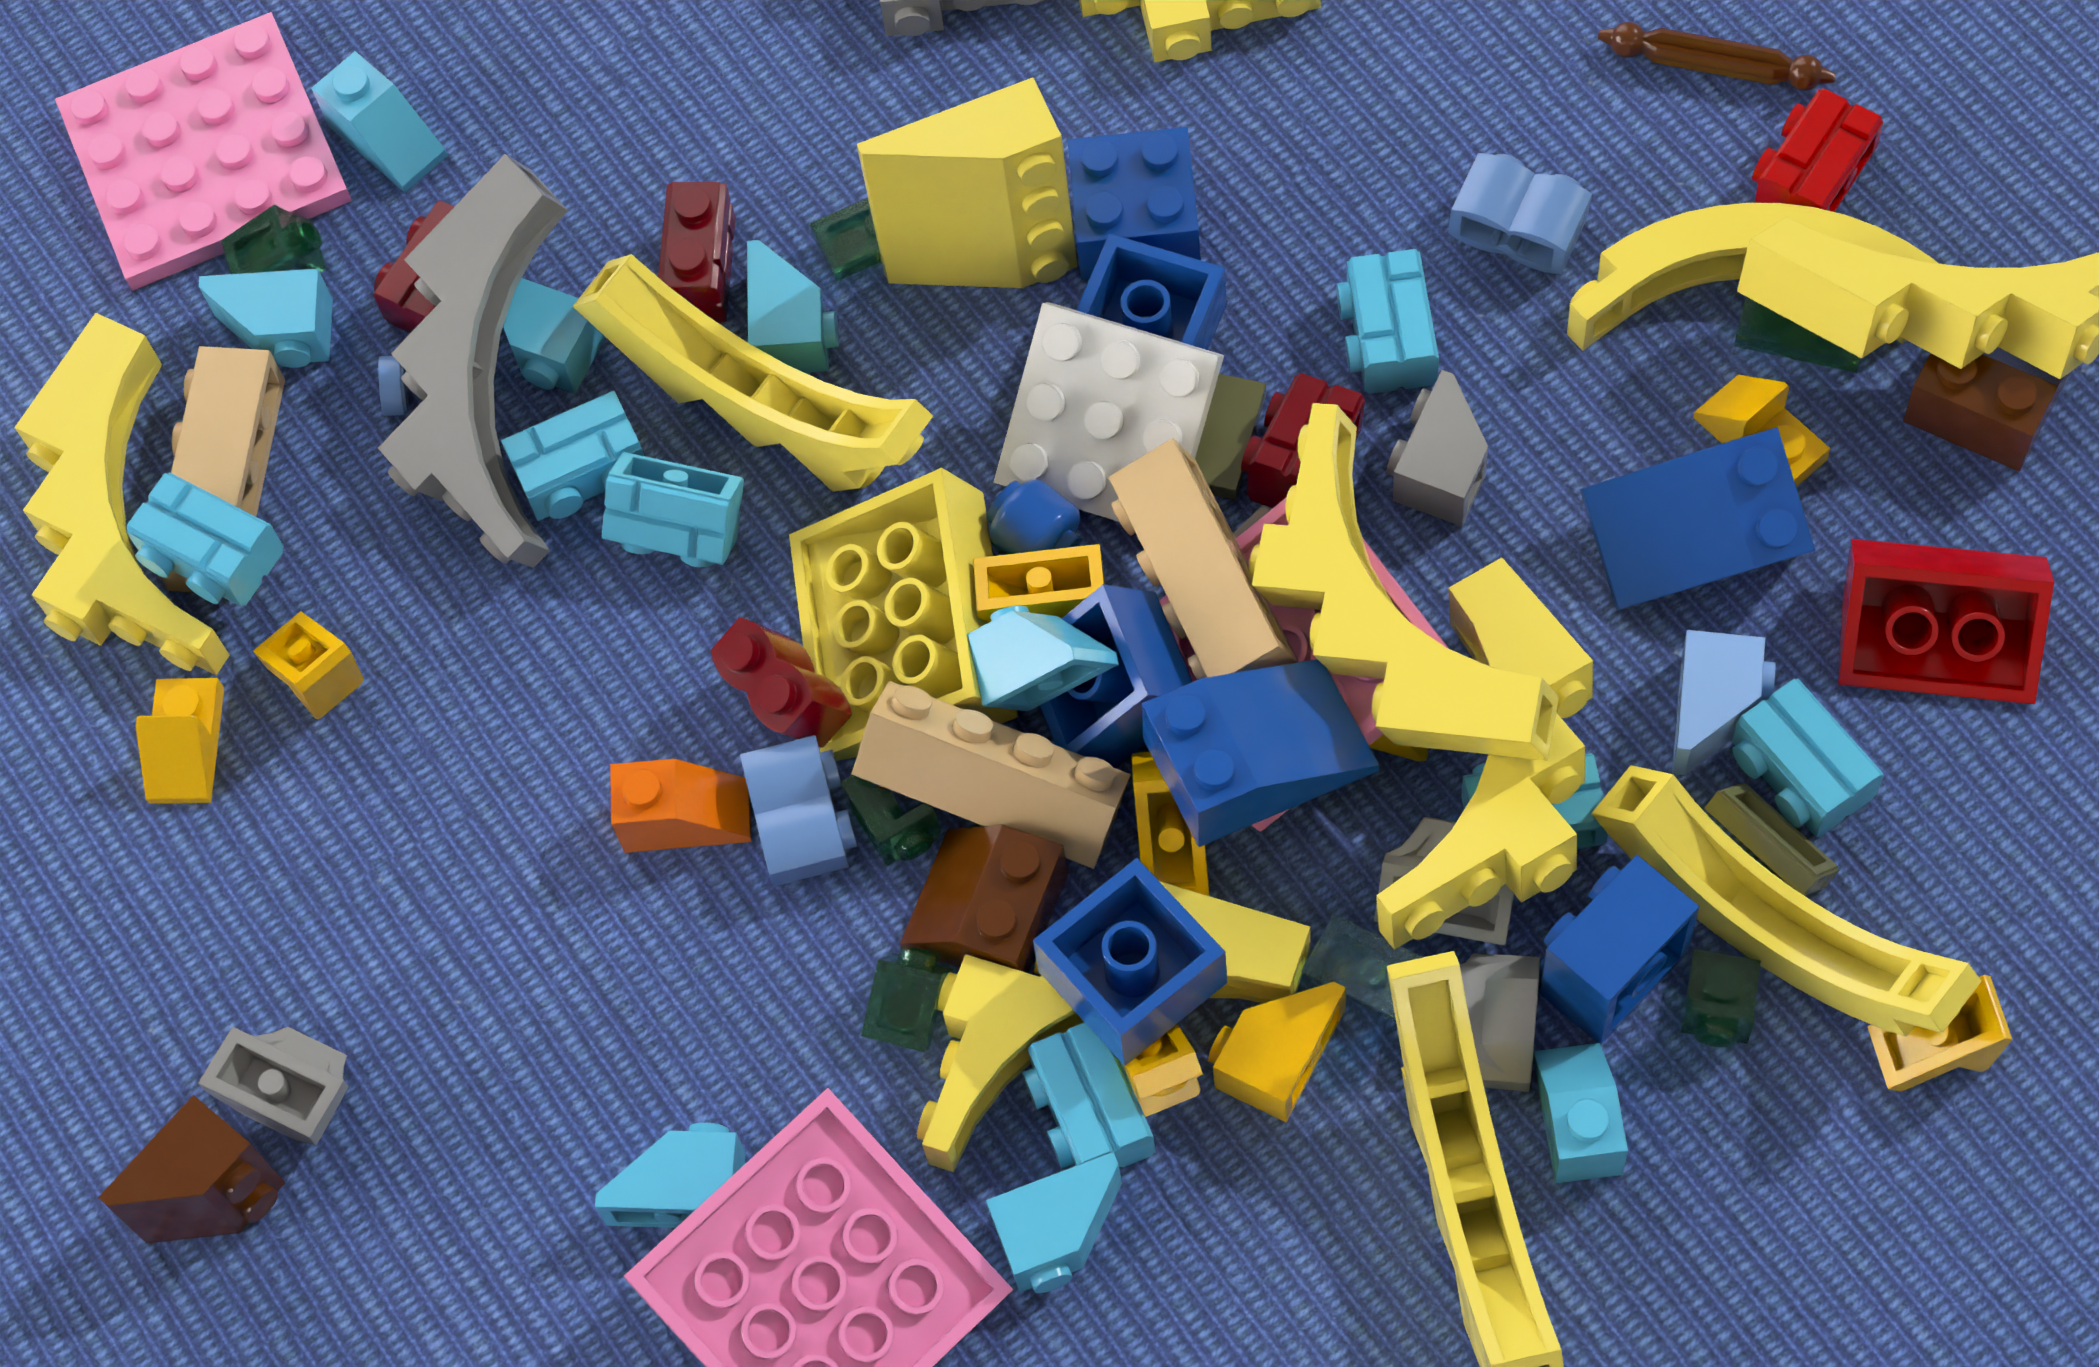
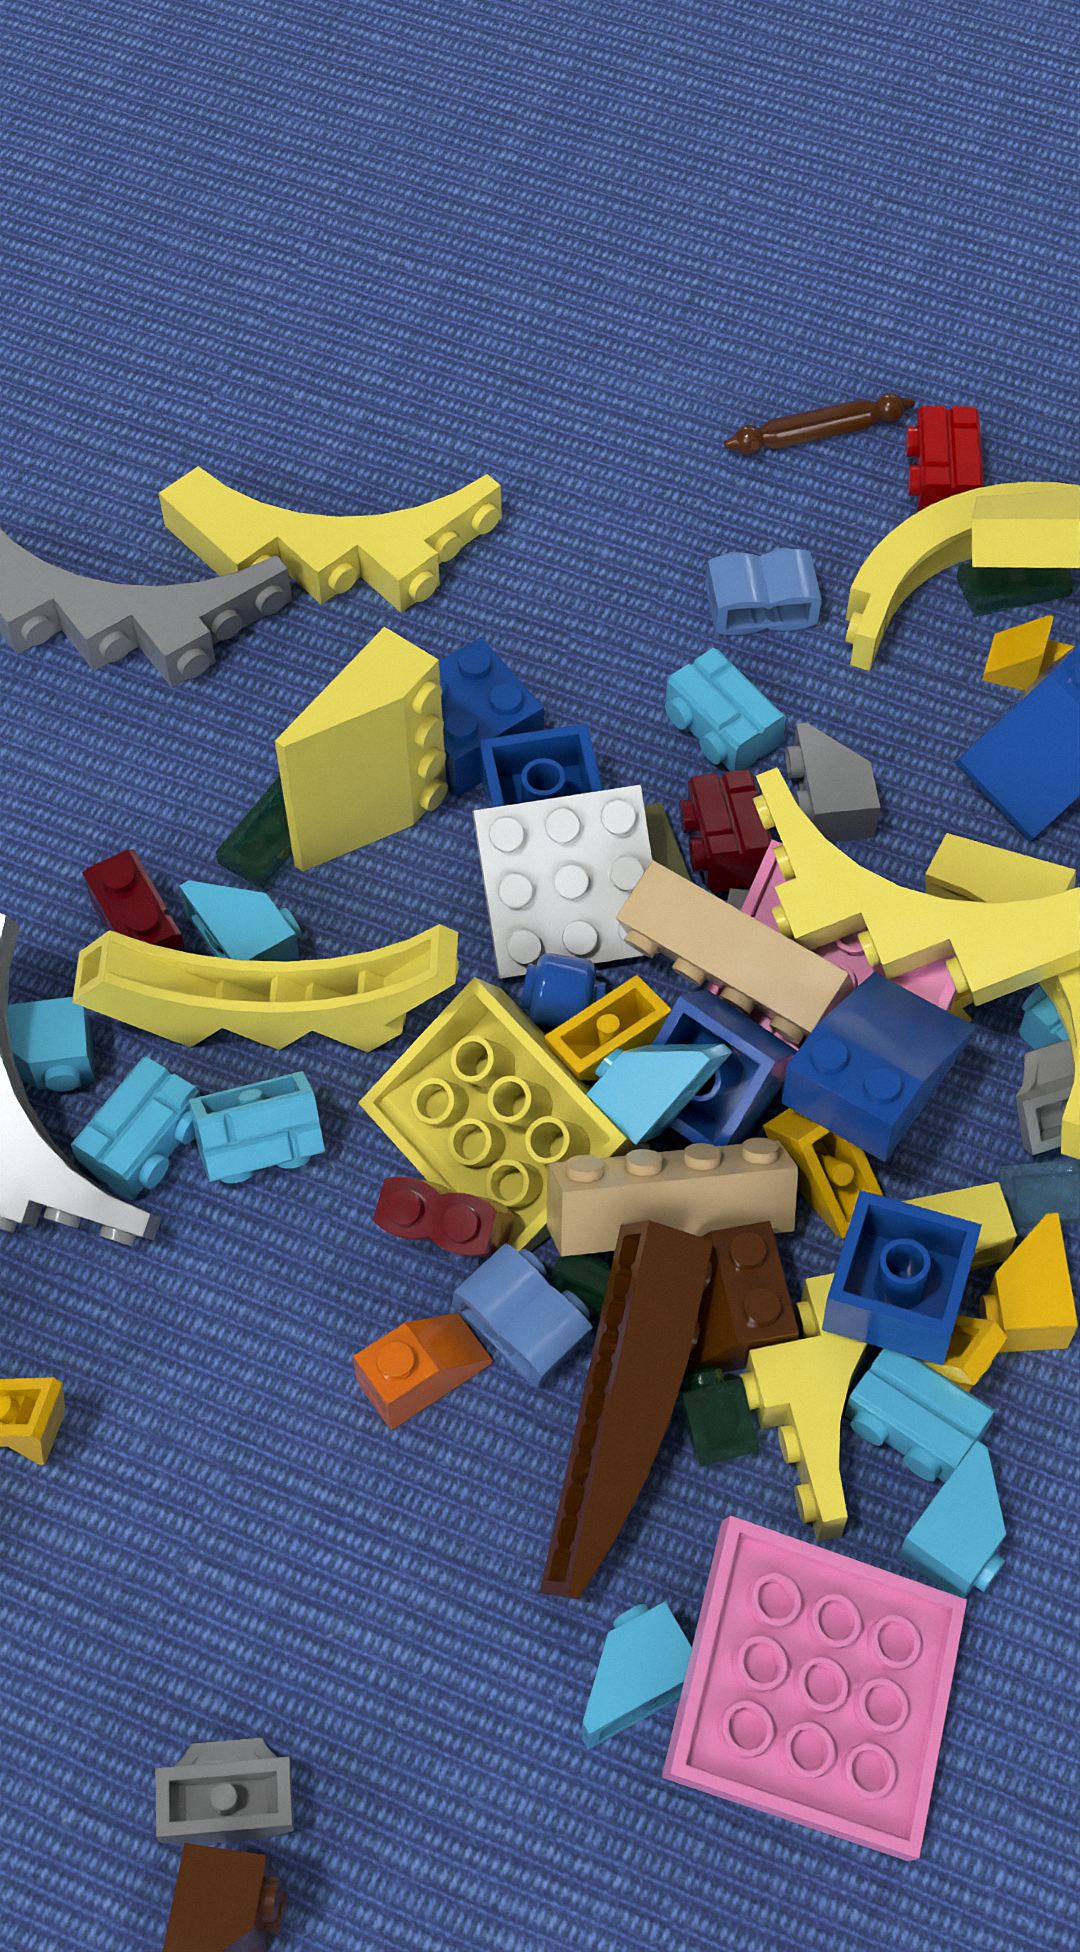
camera: 40 degrees left, 5 degrees down
(836, 928) = (628, 1394): none -> reddish brown slope

